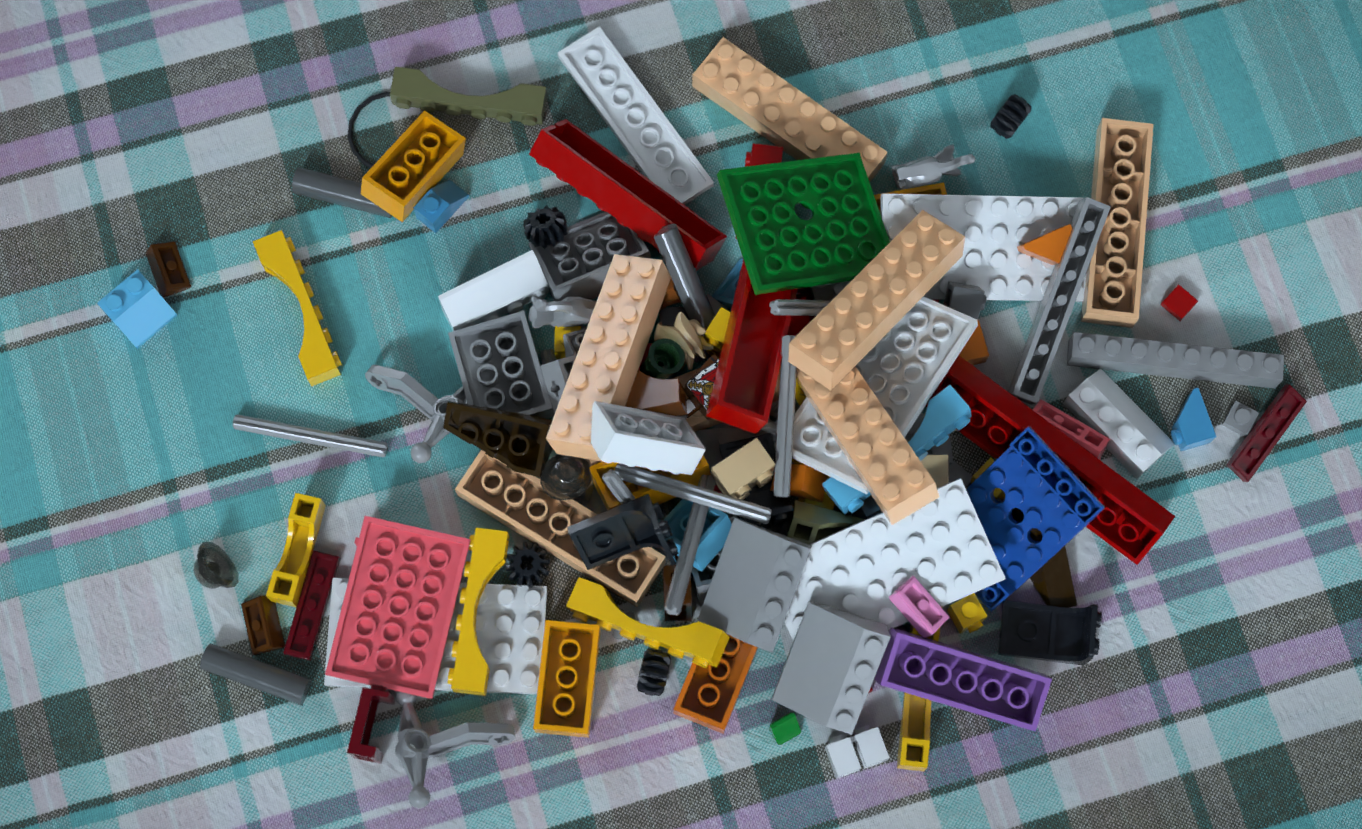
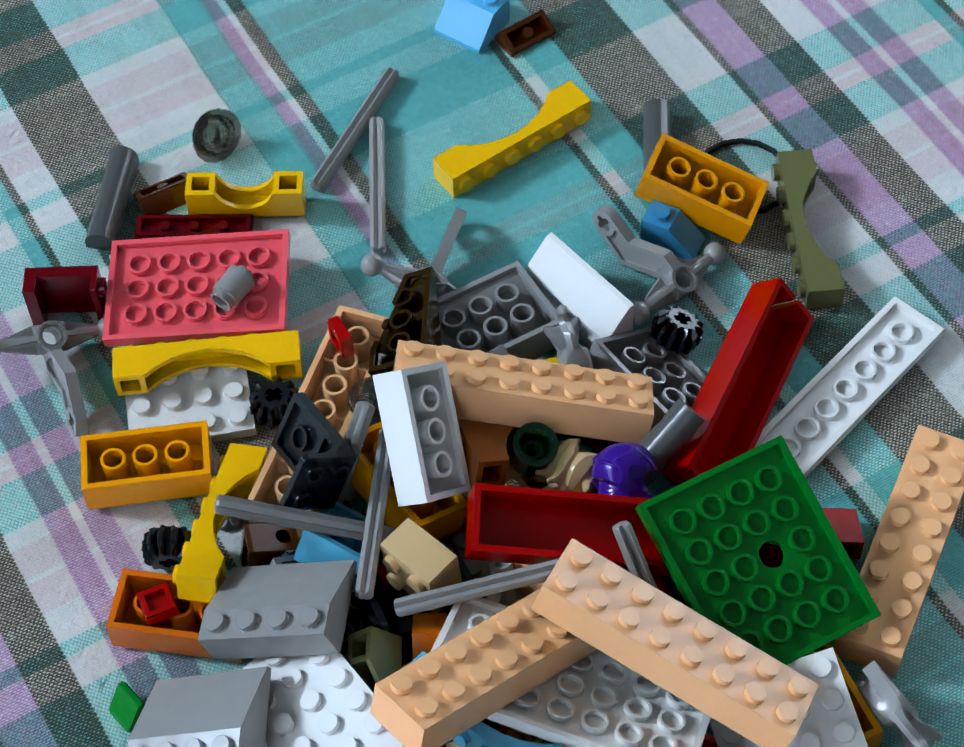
camera: 80 degrees right, 20 degrees down
(239, 442) = (354, 129): none -> light grey axle
(421, 572) = (232, 287): none -> light grey brick
(492, 214) = (673, 277): none -> light grey piece
(498, 492) = (340, 337): none -> red tile
(706, 298) = (621, 470): none -> dark purple helmet
(716, 684) = (157, 603): none -> red tile

